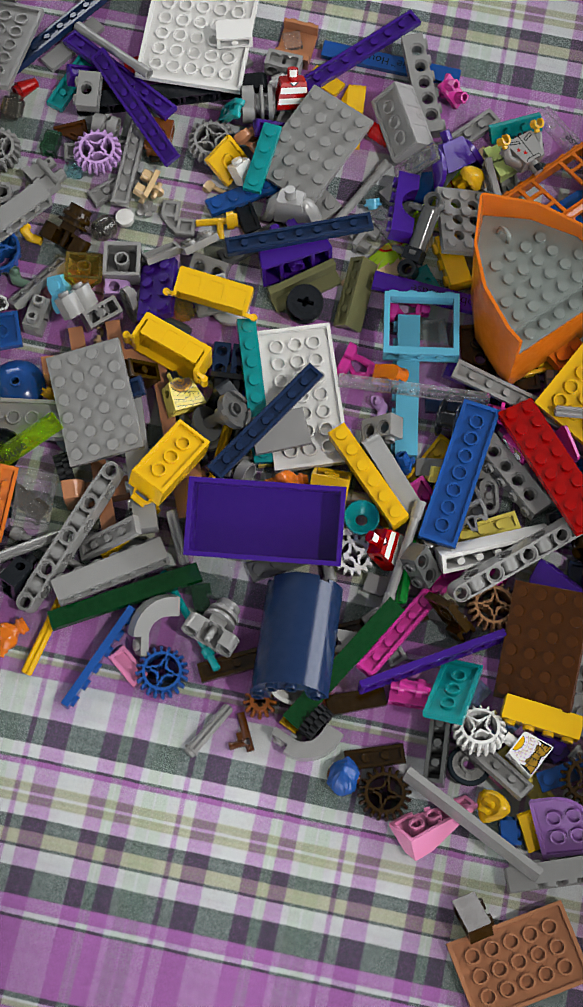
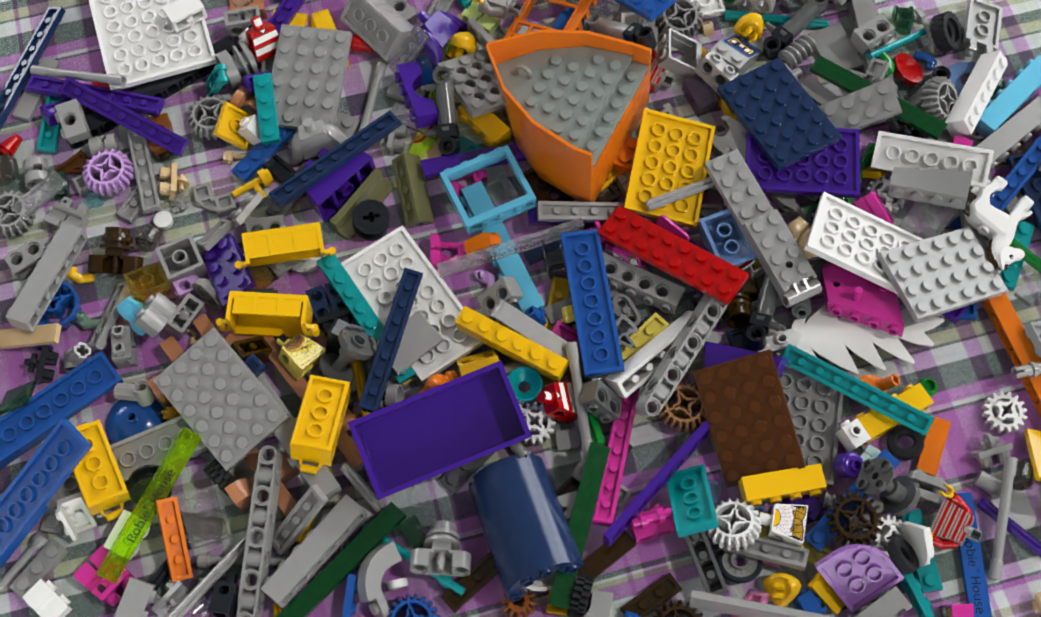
camera: 25 degrees left, 5 degrees down
(28, 361) = (137, 392): none -> light grey piece
(29, 145) = (39, 195): none -> clear tile
(36, 123) = (35, 170): none -> light grey wheel
(166, 634) = (397, 584): none -> white tile
(372, 204) = (386, 105): medium azure plate -> none
(449, 614) = (651, 431): dark brown plate -> none

